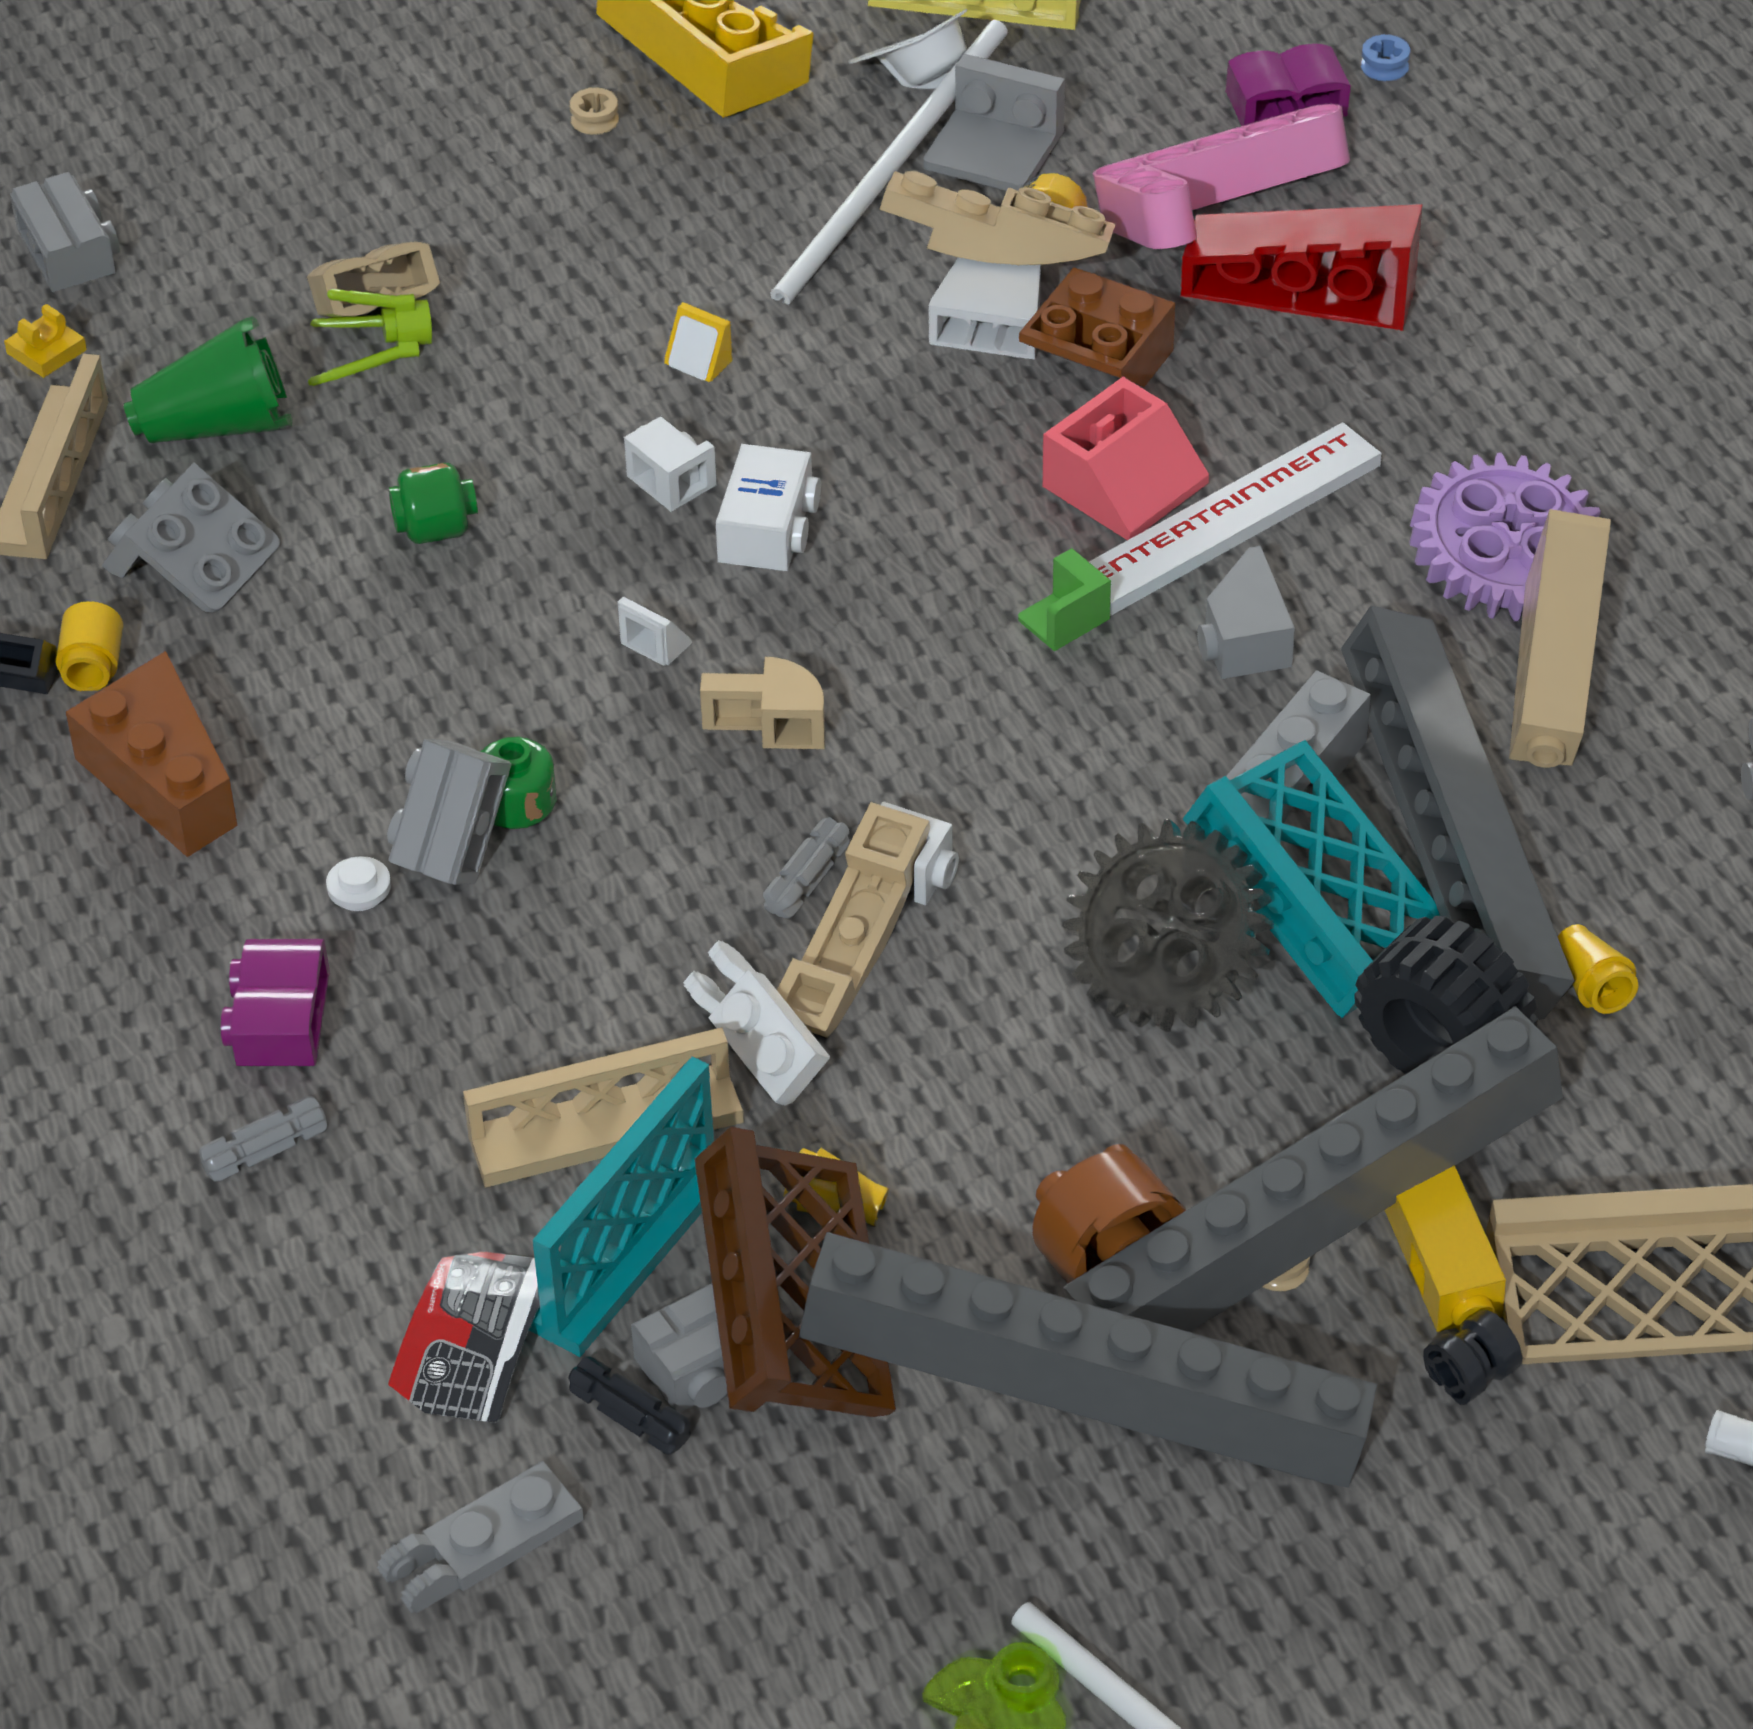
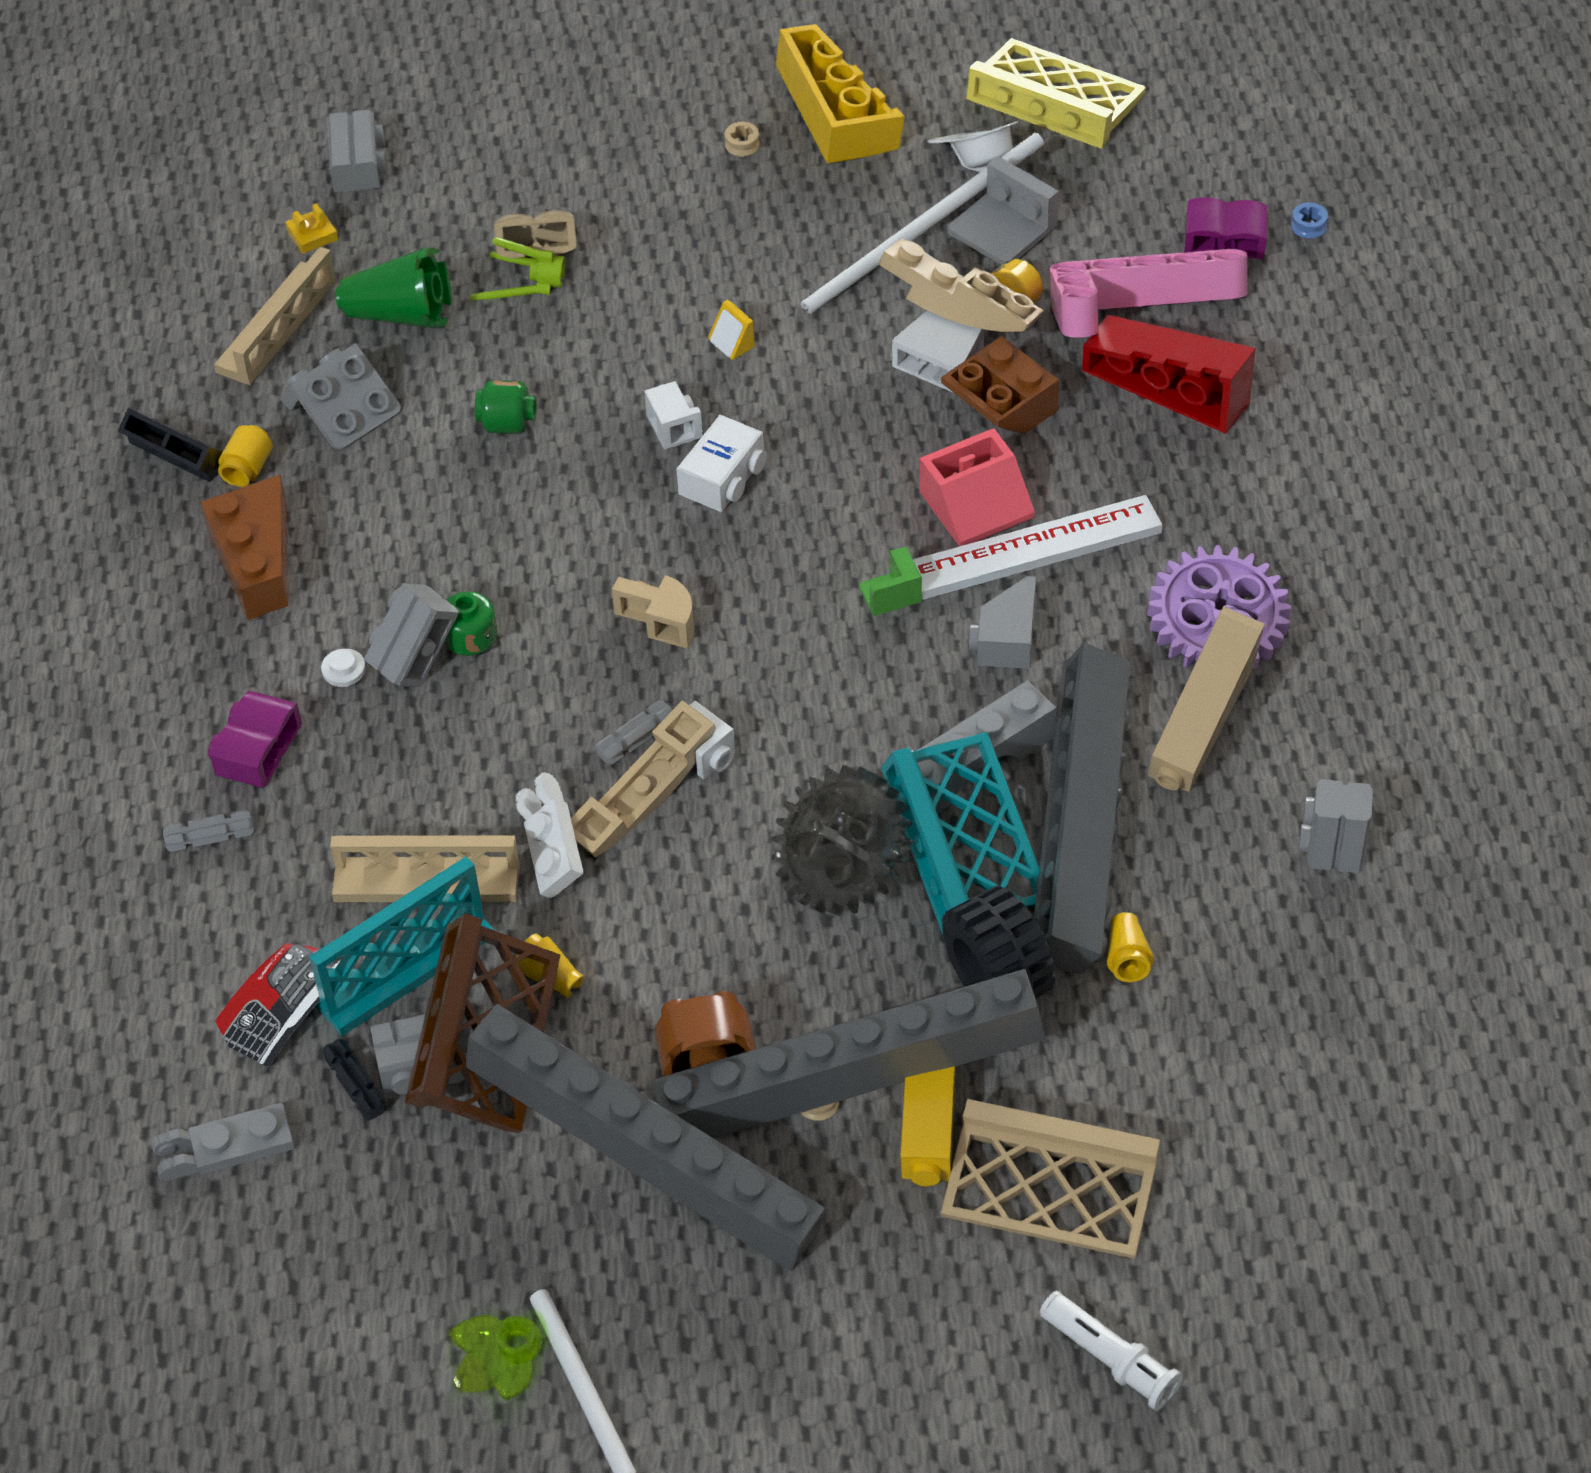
camera: 20 degrees right, 5 degrees up
(650, 633) = (607, 536): white slope -> none
(1465, 1359) = (910, 1204): black wheel -> none

